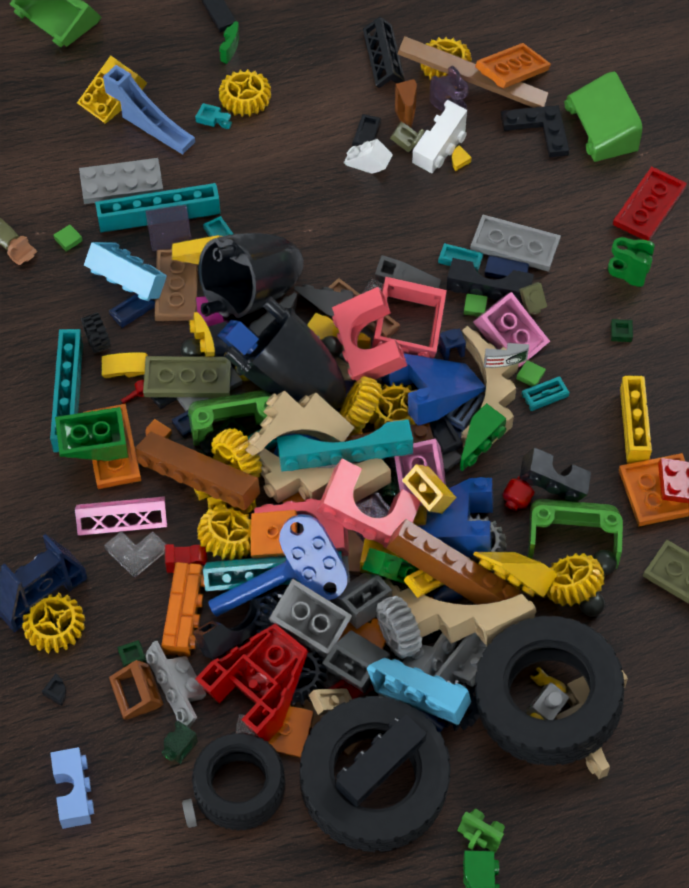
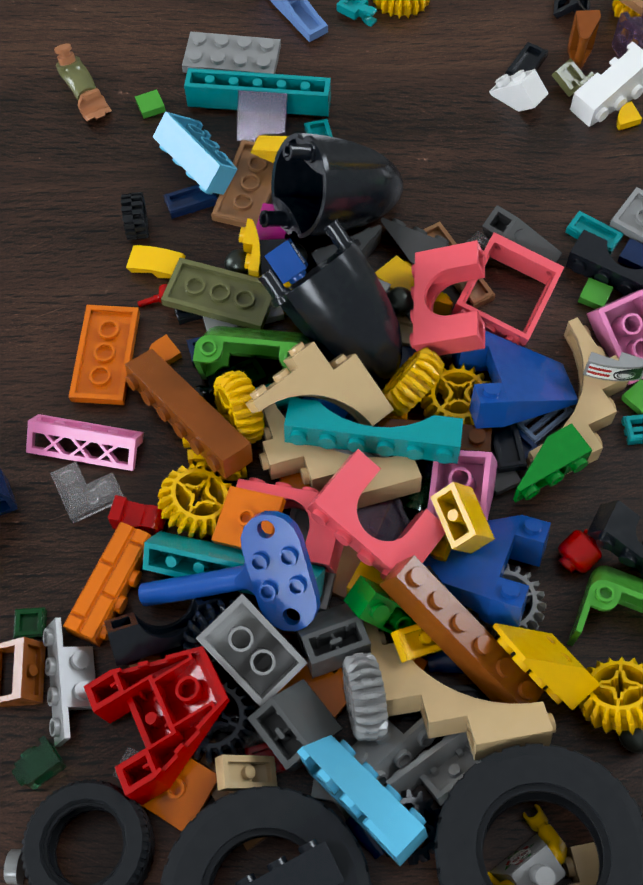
camera: 20 degrees right, 5 degrees up
(66, 378) = (76, 276): teal brick -> none
(92, 435) = (79, 336): green slope -> none
(451, 339) = (551, 329): dark blue window -> none

